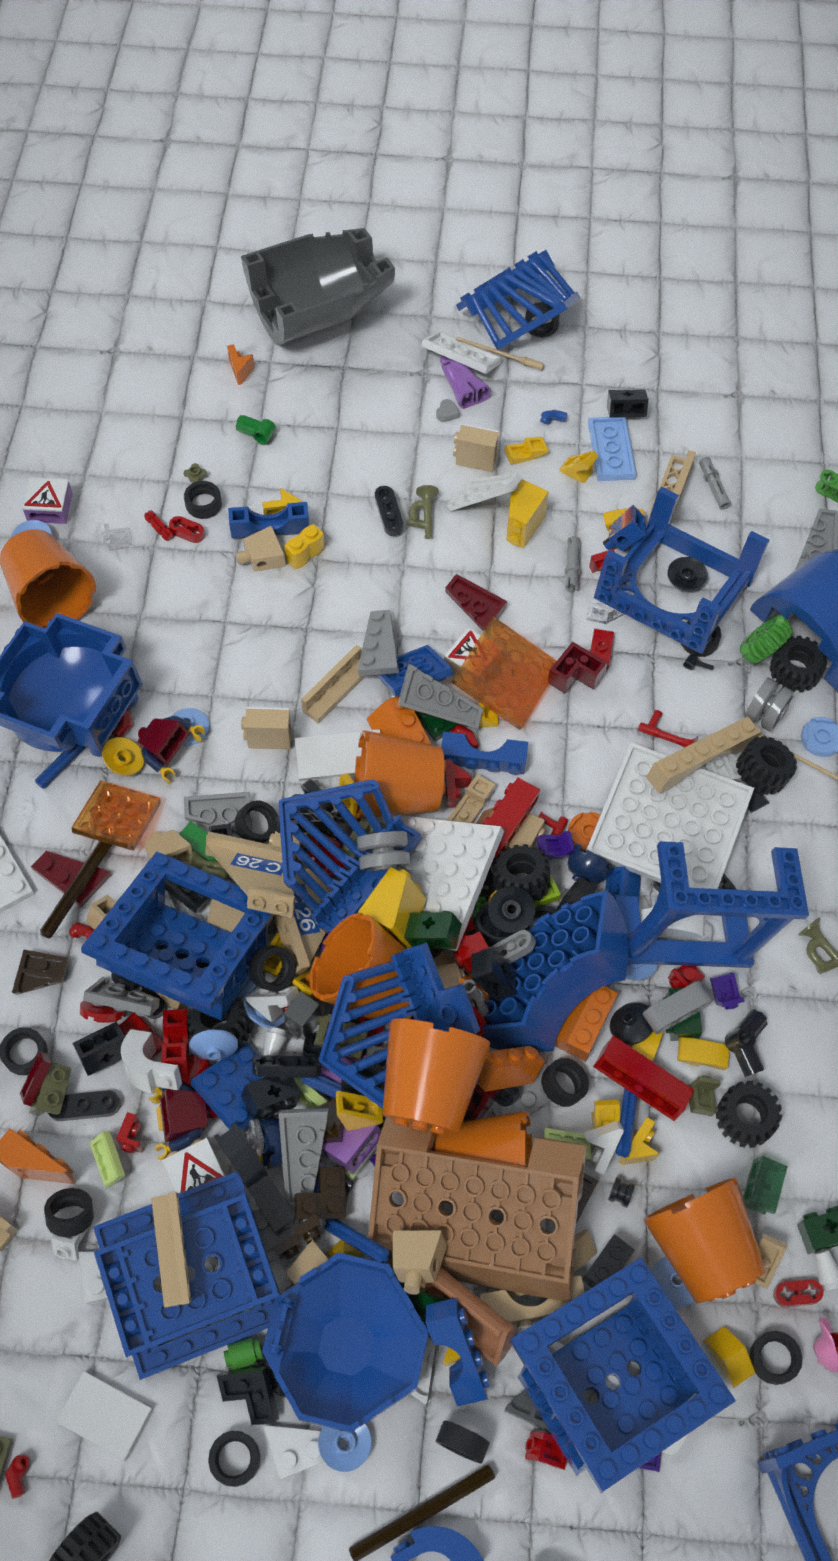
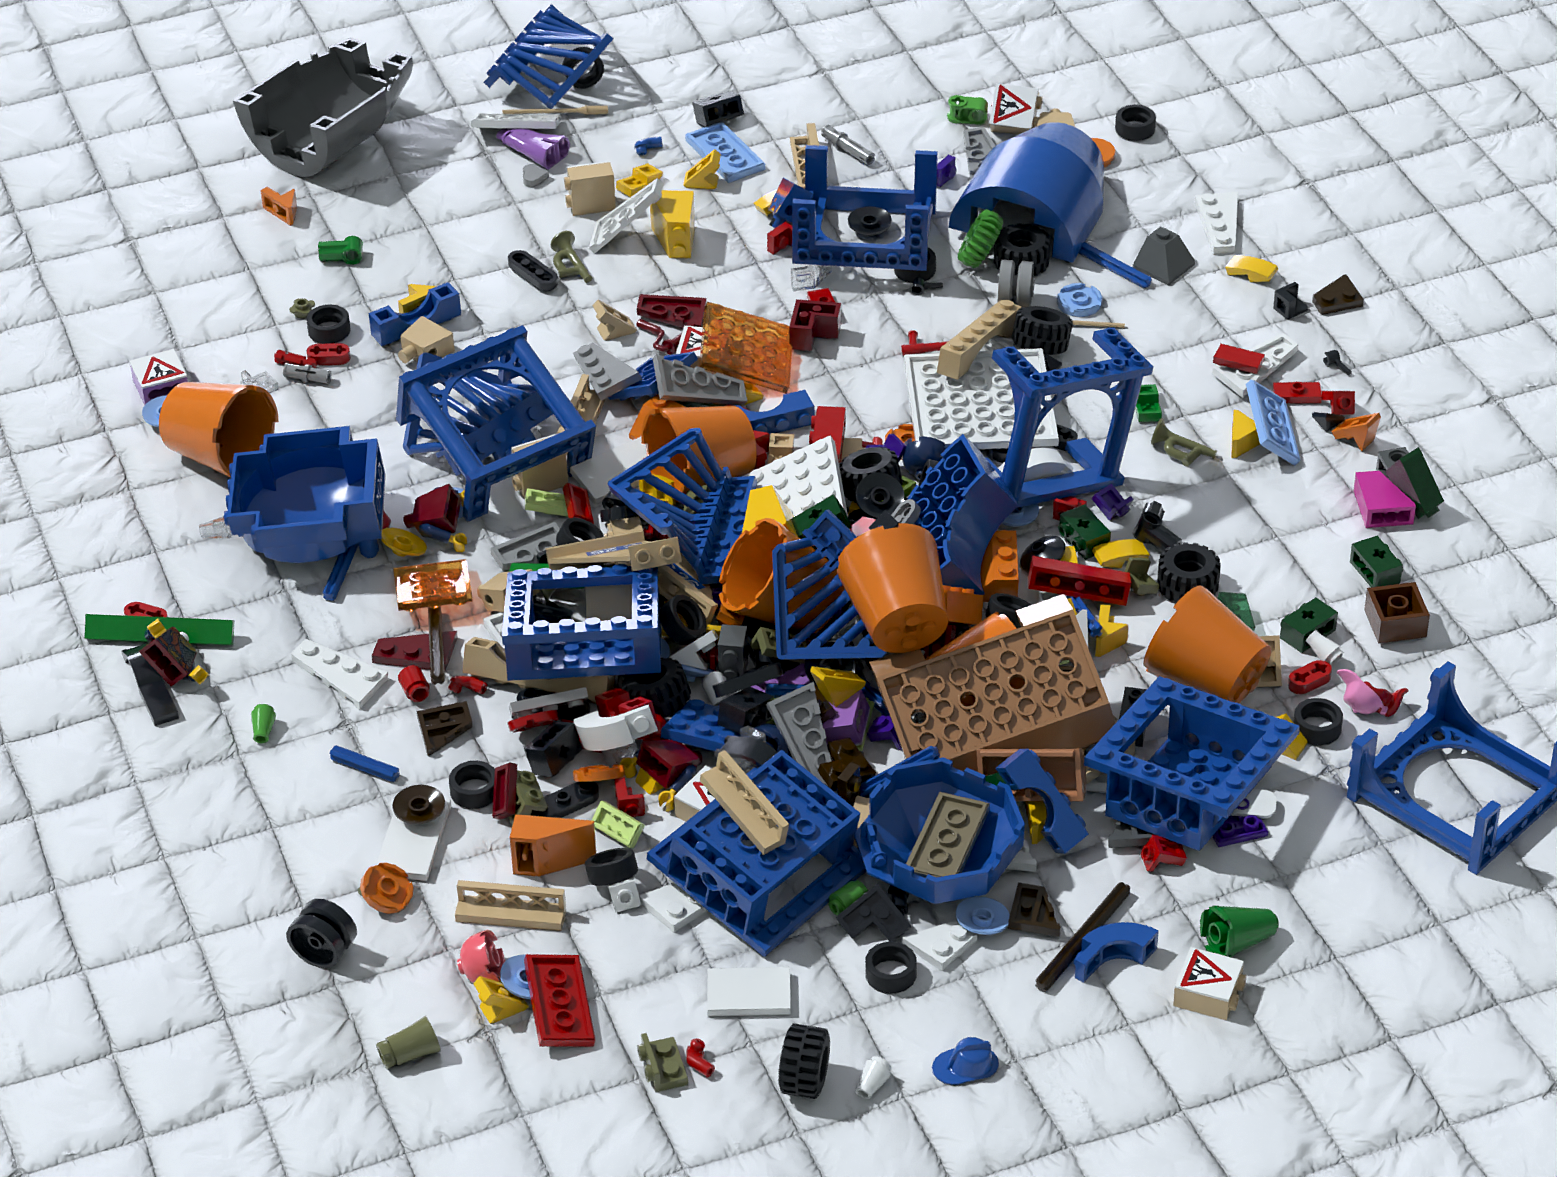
camera: 25 degrees left, 20 degrees down
(40, 912) = (414, 683): none -> red brick
(121, 1096) = (598, 773): none -> orange tile
(159, 542) = (307, 373): none -> light grey pin
(188, 622) = (517, 359): none -> blue arch
(213, 1044) = (661, 686): light blue dish -> none
(260, 680) = (498, 425): none -> blue plate
(260, 766) = (545, 502): none -> yellowish green plate
(280, 779) = (577, 502): none -> red tile
(305, 546) = (467, 323): yellow brick -> none
(353, 1346) = (948, 835): none -> dark tan tile
(383, 849) = (731, 485): light grey wheel -> none
(393, 1458) = (1033, 911): none -> dark brown wing
(417, 1257) = (963, 740): tan torso -> none
(419, 593) = (613, 323): none -> tan slope
(451, 638) = (668, 345): none -> dark red piece
(462, 1441) = (1084, 855): black tyre -> none
(572, 570) = (753, 255): light grey pin -> none
(621, 1192) = (1112, 668): black wheel -> none
(677, 1007) = (1077, 517): light grey beam -> none
(778, 545) = (946, 170): none -> dark purple bracket
(820, 883) = (1148, 404): none -> green slope

